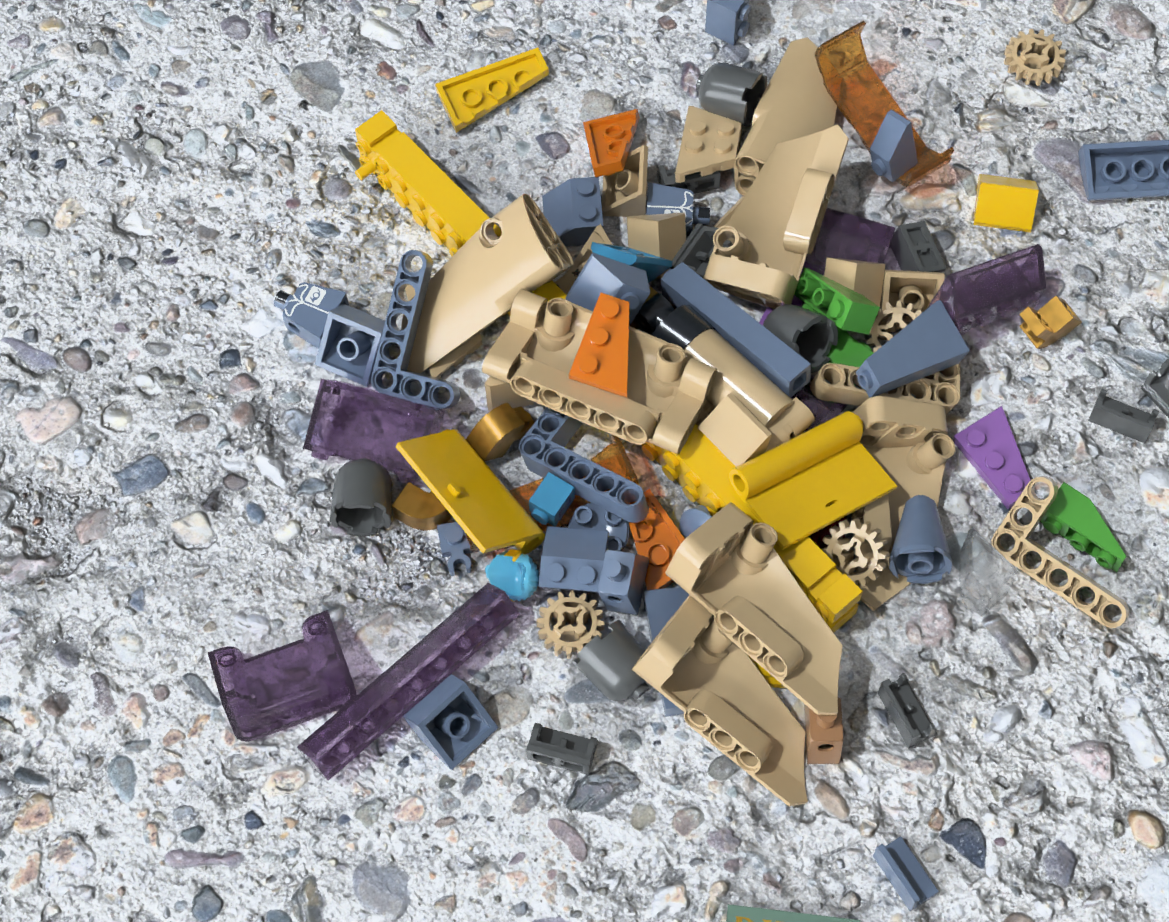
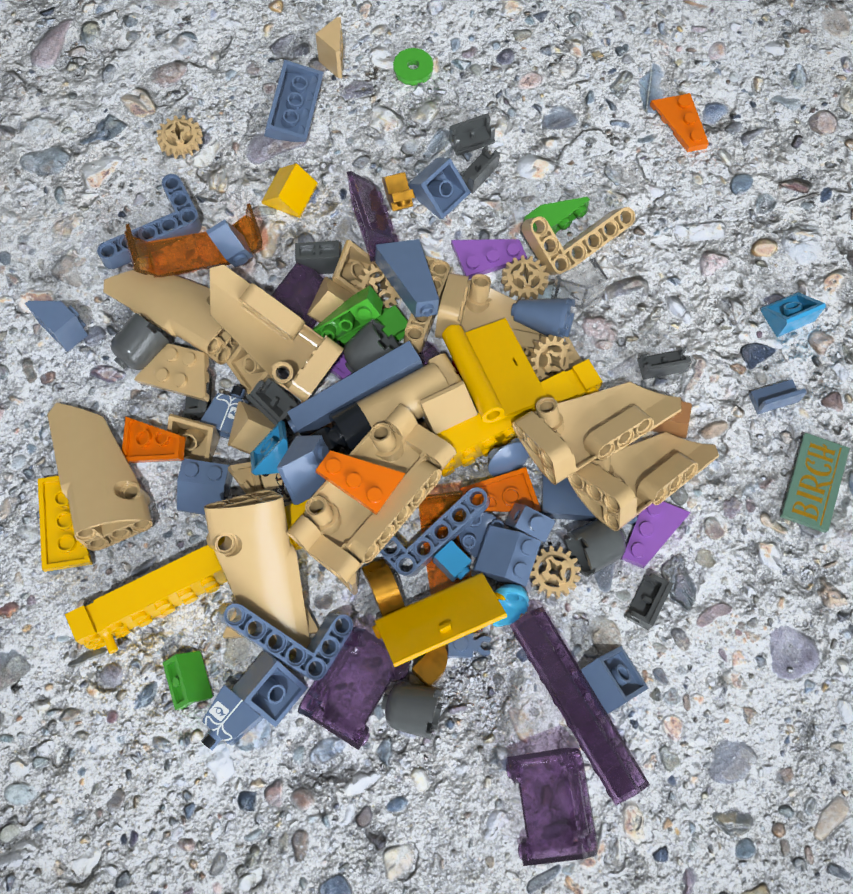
camera: 80 degrees left, 5 degrees up
(348, 261) = (187, 679): none -> bright green panel
(552, 102) = (96, 479): none -> tan panel
(660, 738) = (652, 531): none -> medium lavender wing
(911, 87) = (158, 228): none -> sand blue beam
(981, 497) = (532, 274): none -> tan gear
(1044, 876) = (792, 313): none -> dark azure slope
(1075, 373) = (439, 187): none -> sand blue slope

